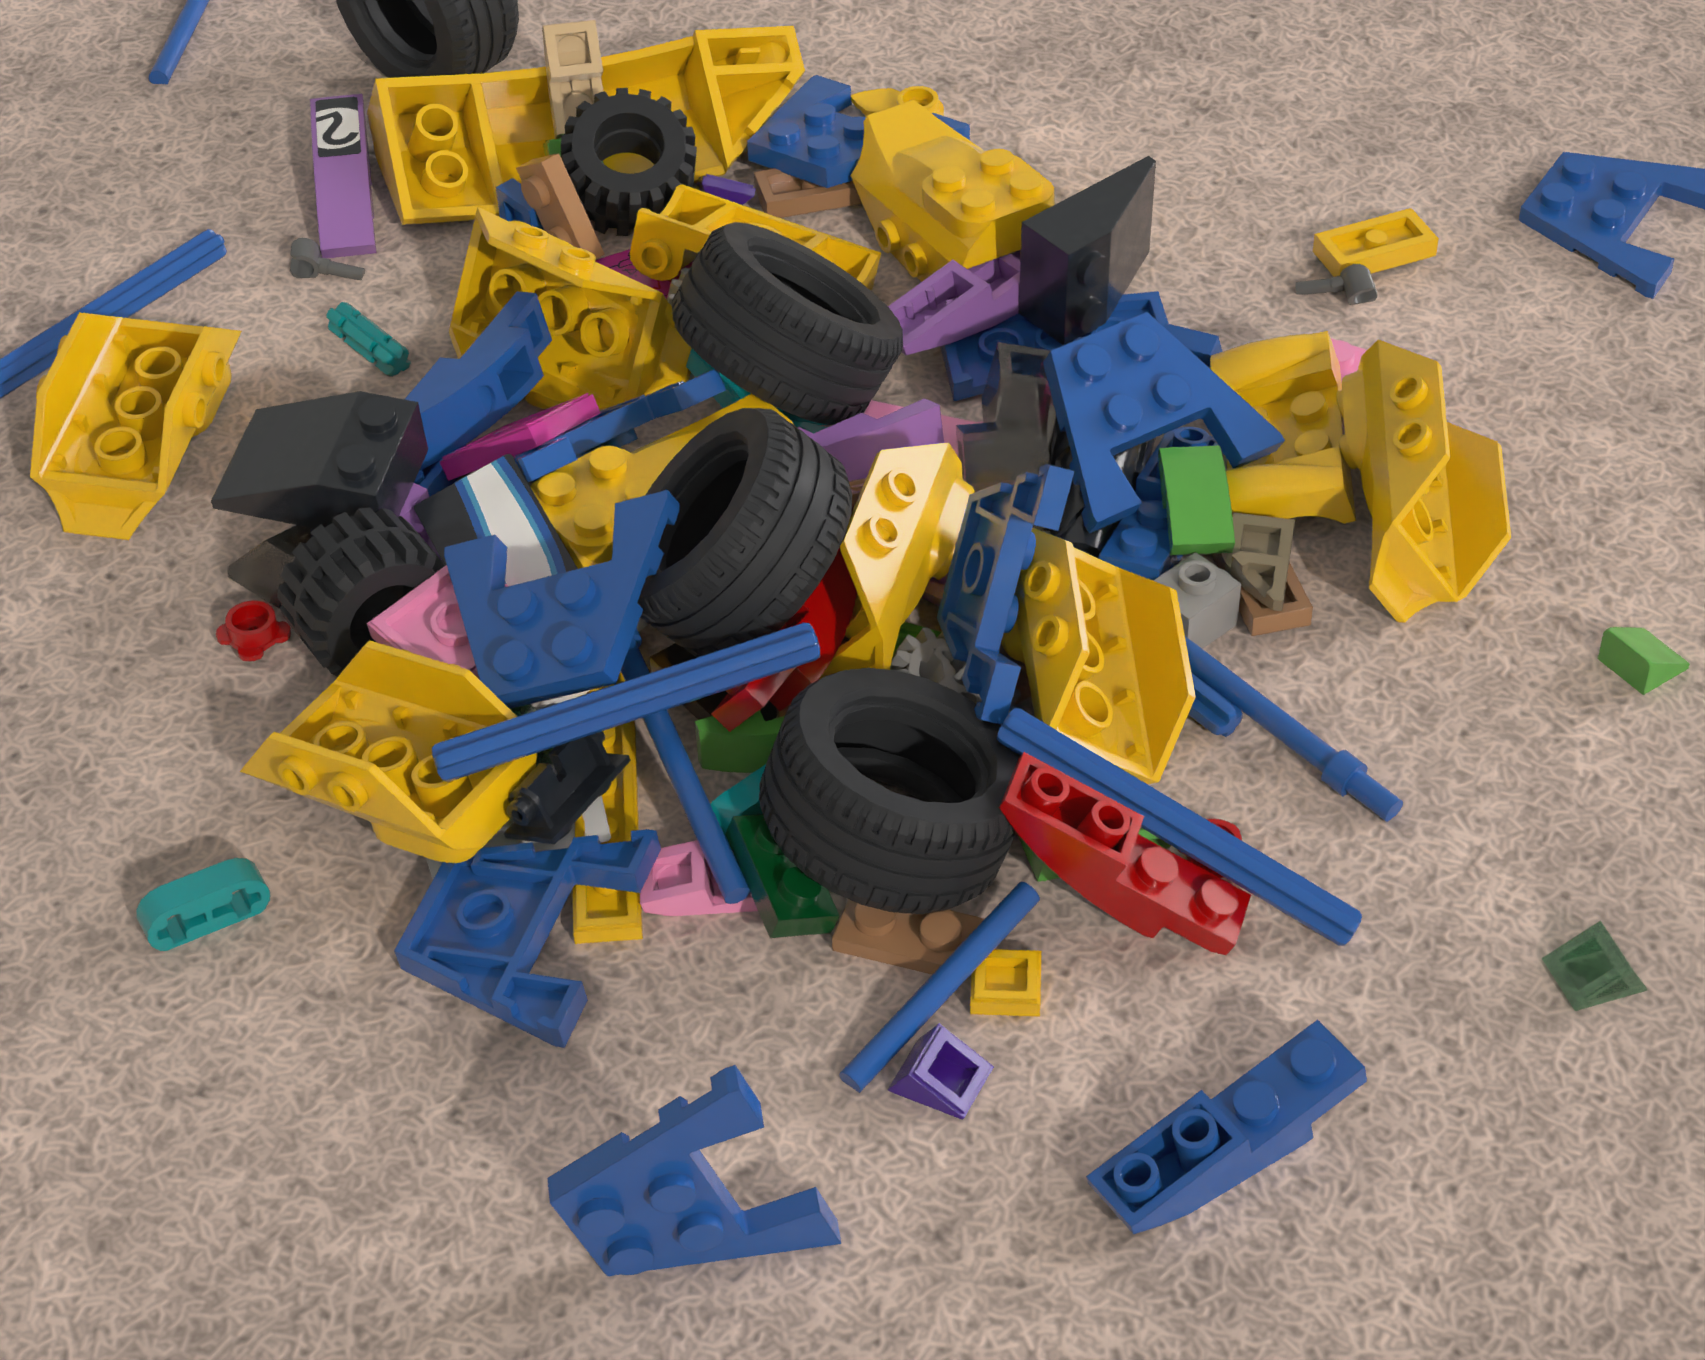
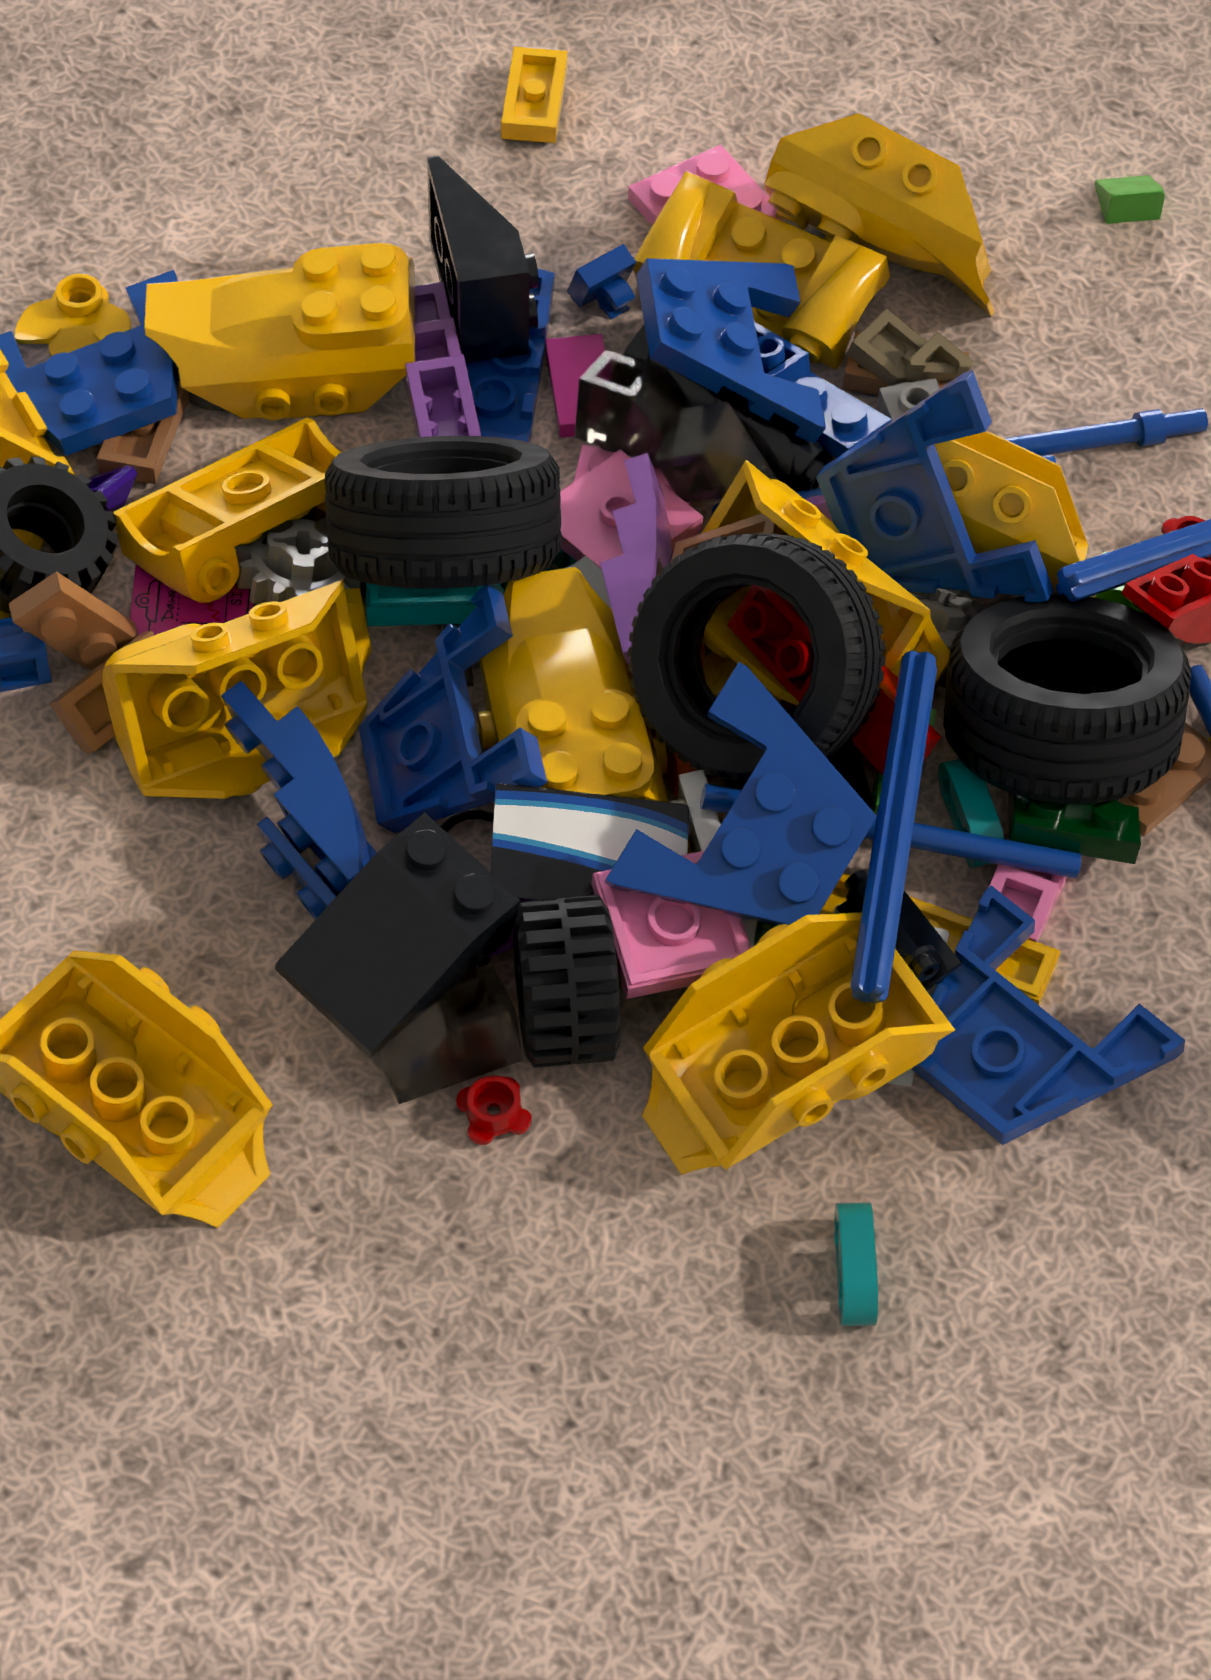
camera: 65 degrees left, 10 degrees up
(368, 339) = (105, 865): teal axle -> none
(520, 435) = (406, 774): dark pink tile -> none
(1196, 500) = (819, 344): bright green slope -> none
(1354, 280) = (578, 132): dark grey hand -> none

